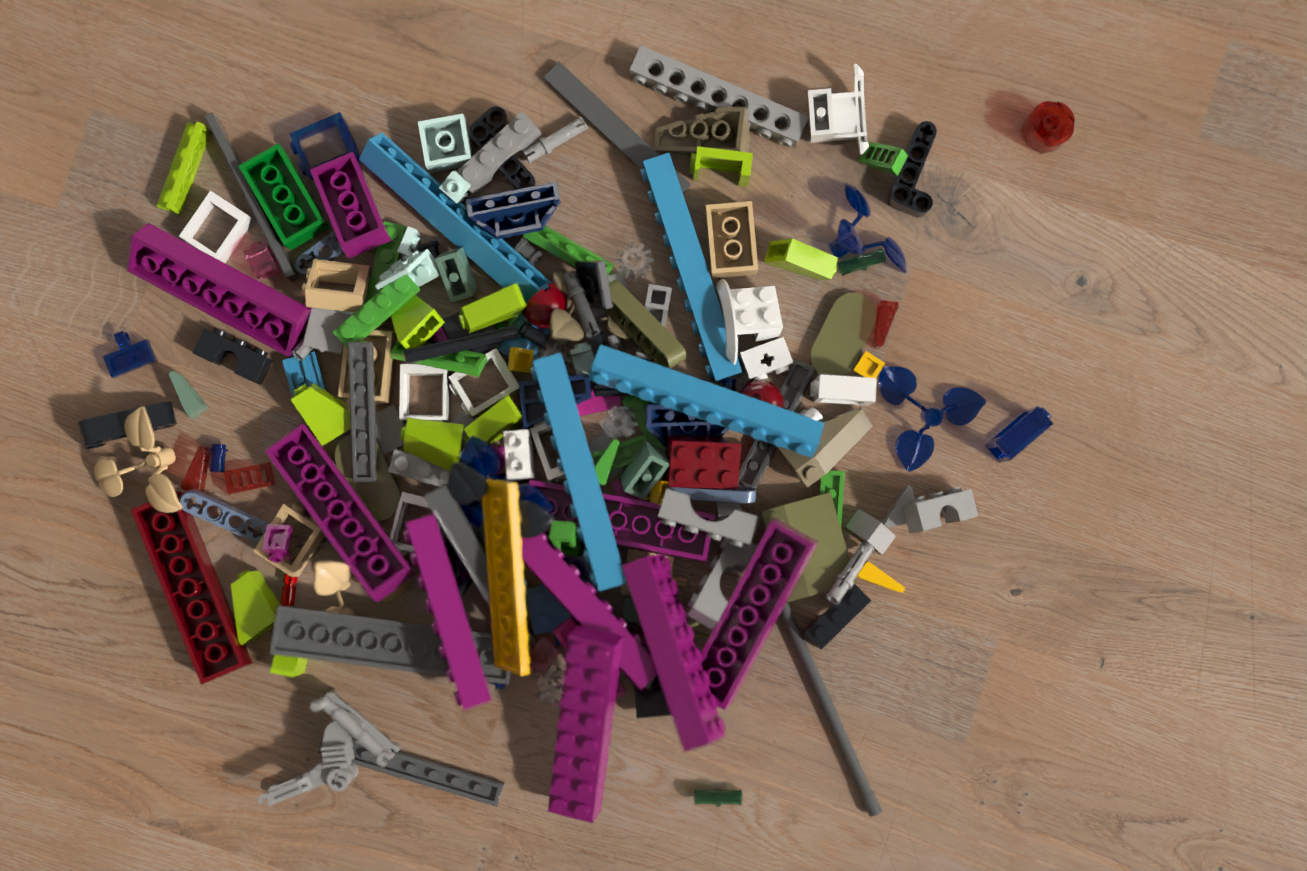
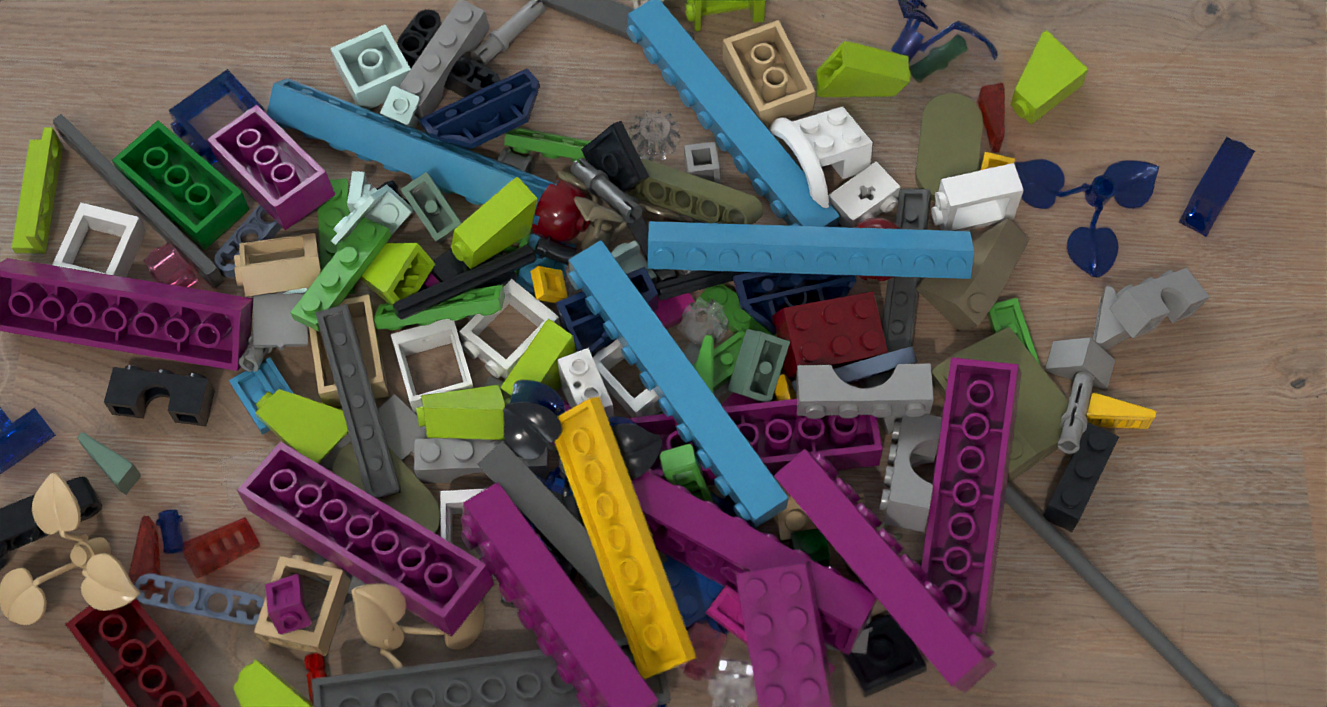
camera: 15 degrees left, 20 degrees down
(934, 305) = (1047, 79): none -> lime slope

